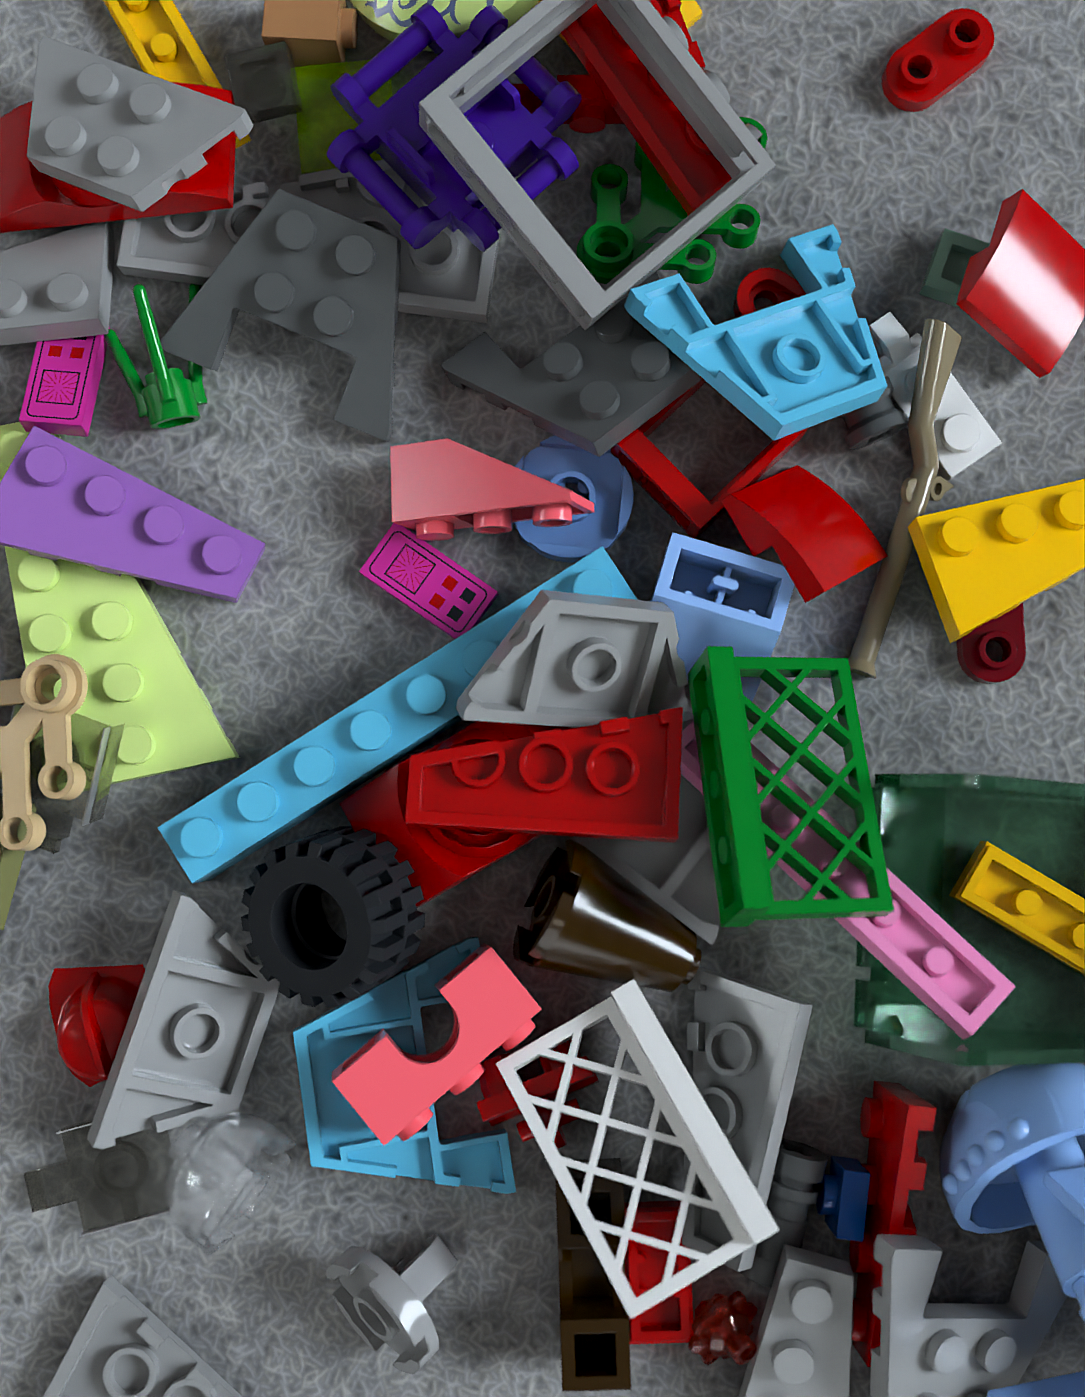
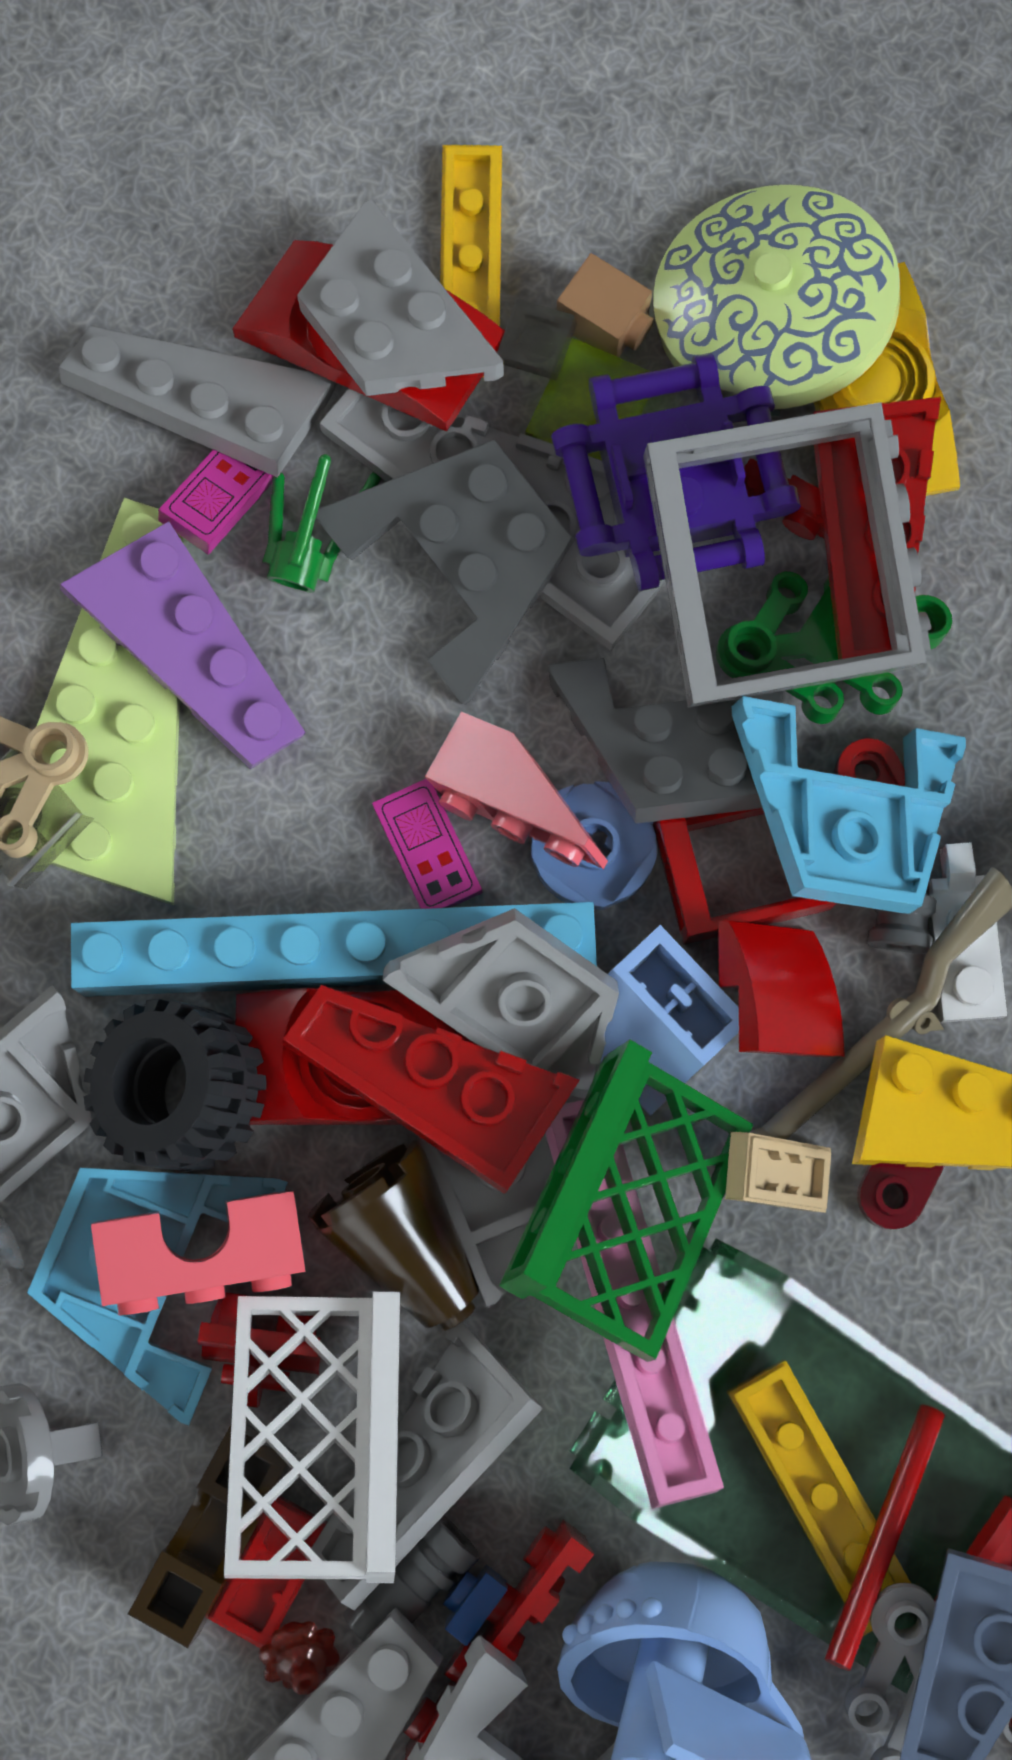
camera: 25 degrees right, 5 degrees down
(891, 687) = (778, 1172): none -> tan plate

